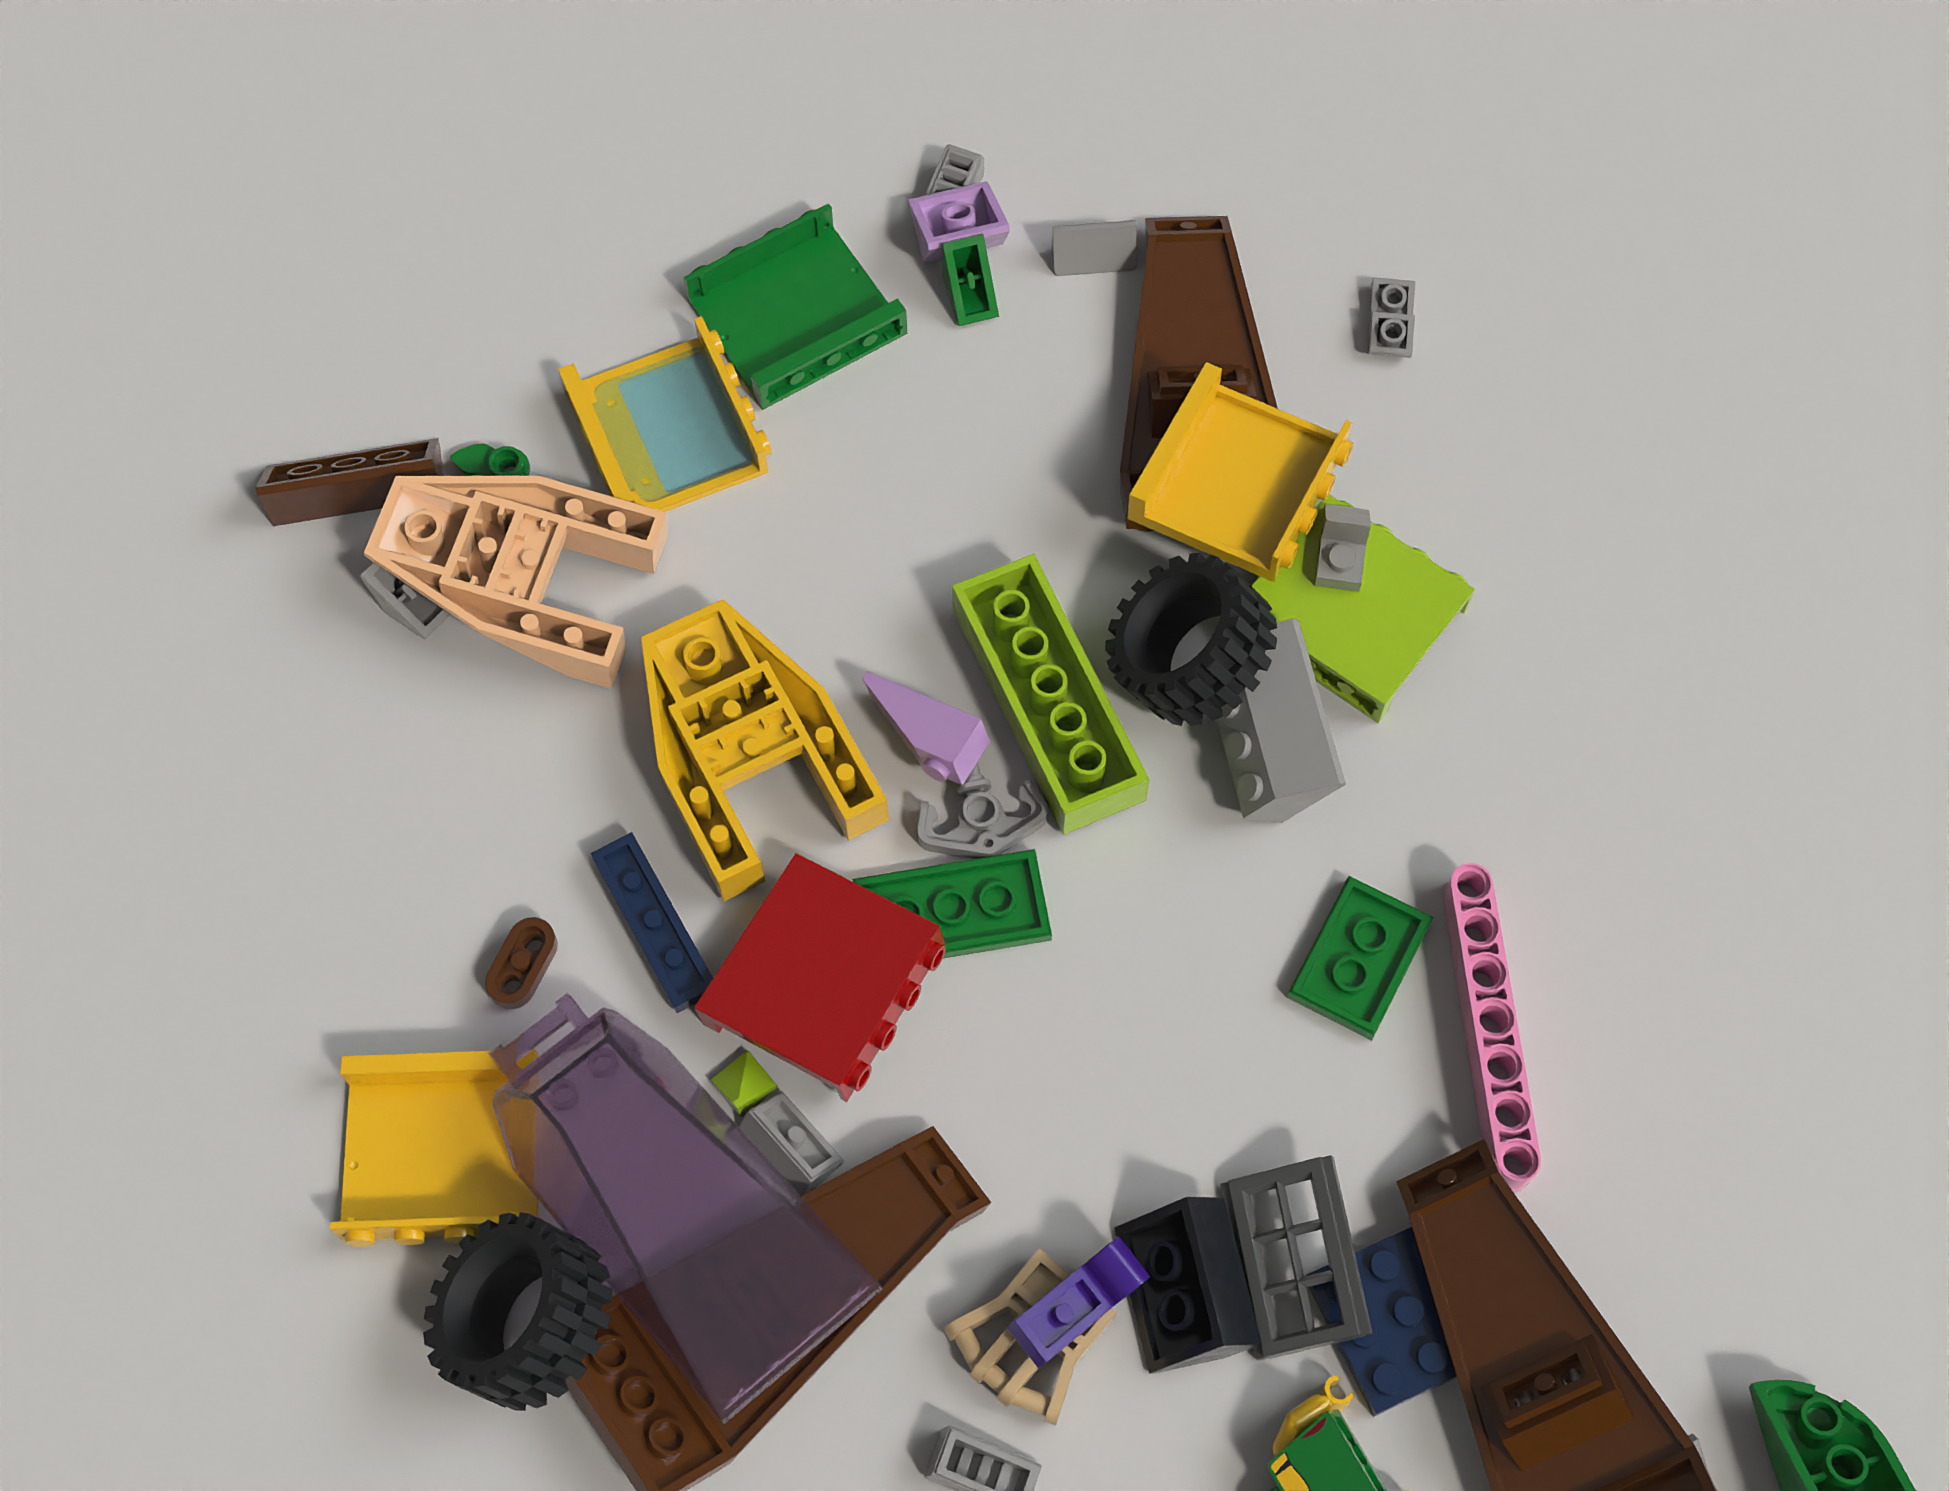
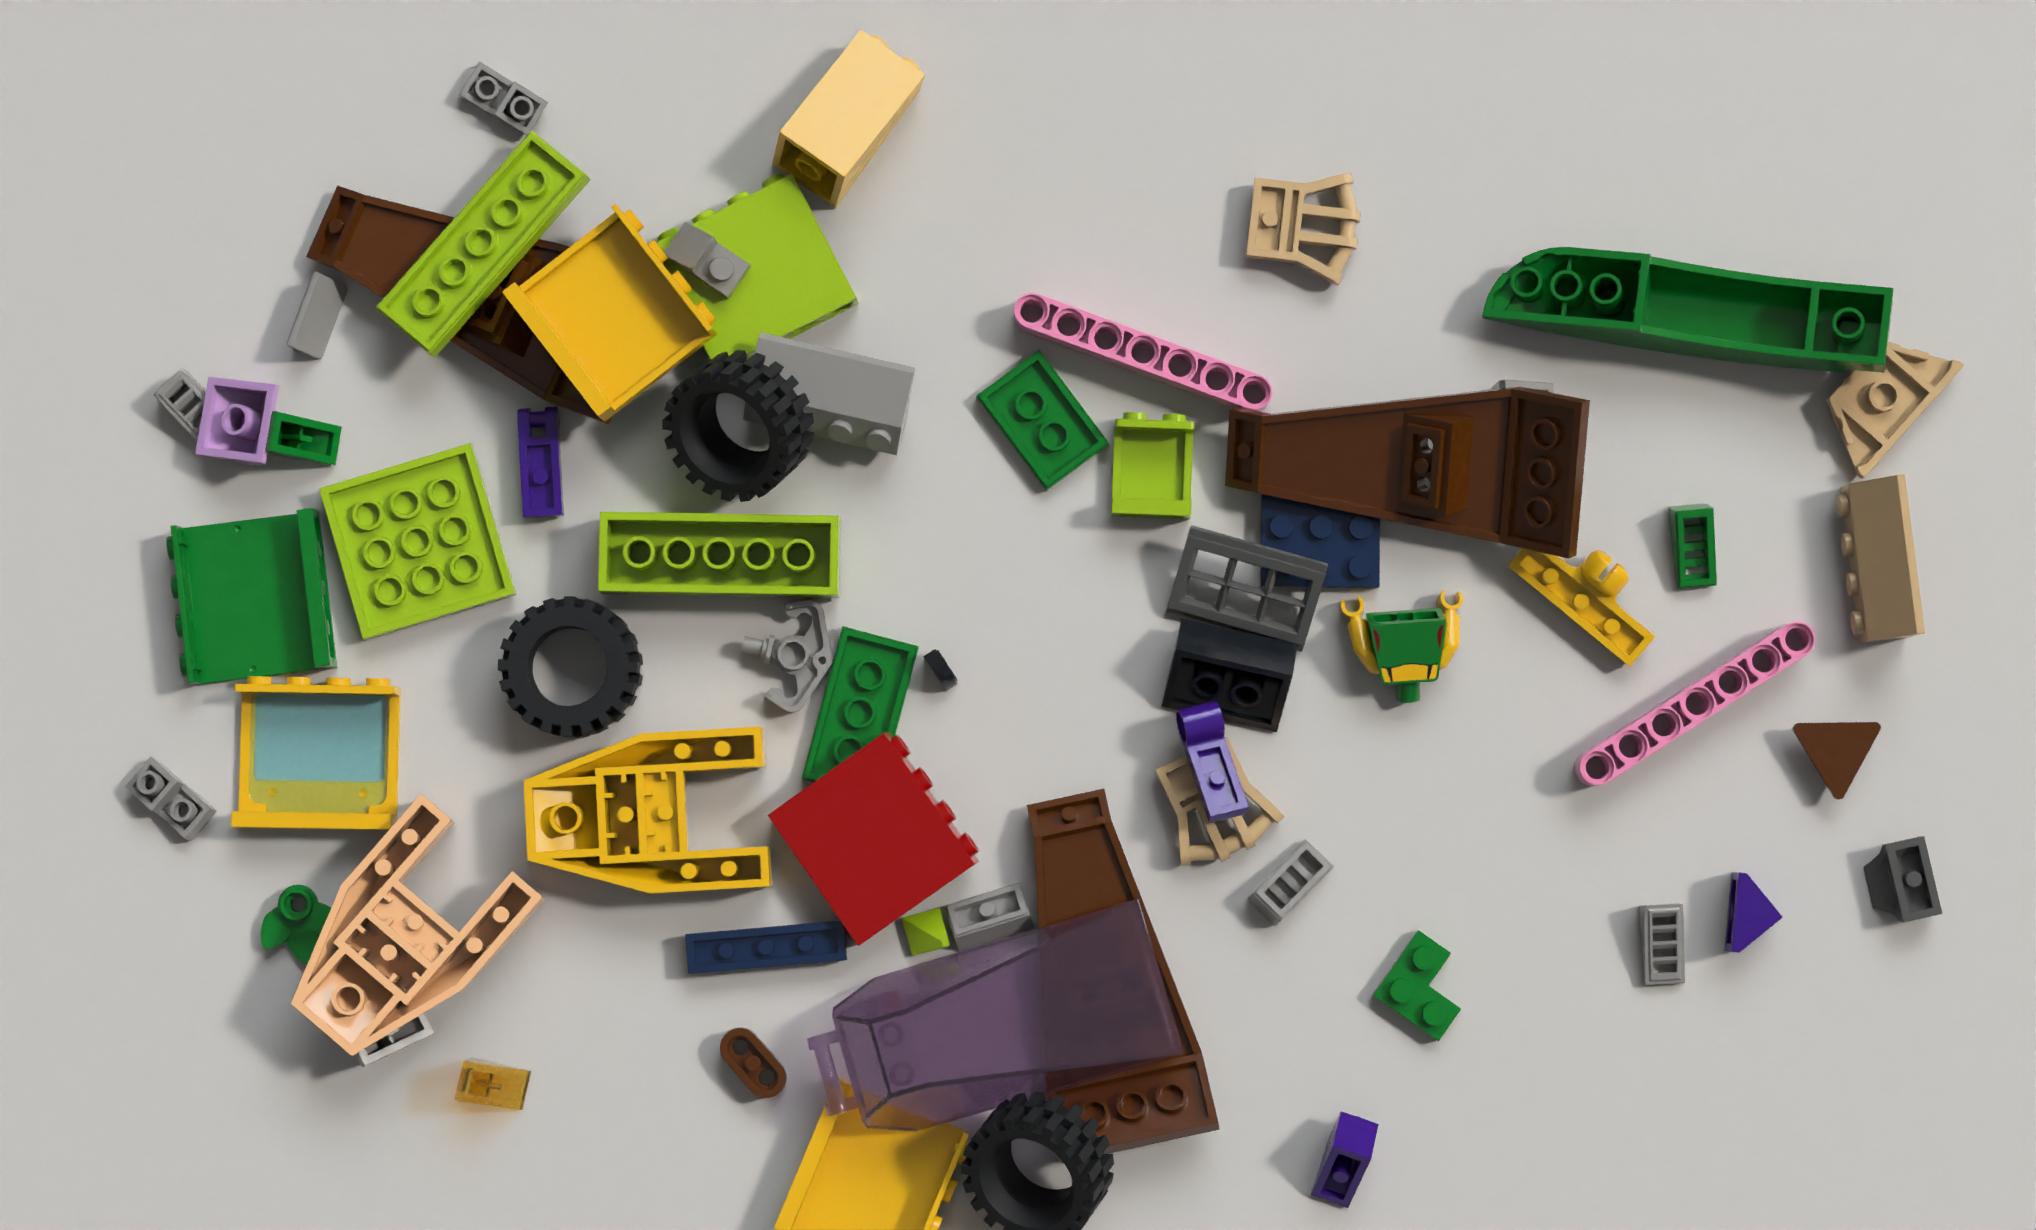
camera: 65 degrees left, 20 degrees up
(342, 481) = (247, 1038): reddish brown slope -> none
(392, 711) = (492, 1084): none -> clear yellow slope
(566, 320) = (170, 798): none -> light grey slope
(872, 649) = (620, 680): none -> black tyre
(921, 422) = (417, 541): none -> lime plate
(938, 735) = (717, 662): lavender slope -> none
(1039, 967) = (941, 669): none -> black tile
(1055, 495) = (540, 463): none -> dark purple plate
(1243, 345) = (483, 243): none -> lime tile
(1374, 1094) = (1152, 467): none -> lime panel
(1560, 620) = (847, 117): none -> yellow slope
(1725, 1102) = (1277, 221): none -> tan plate

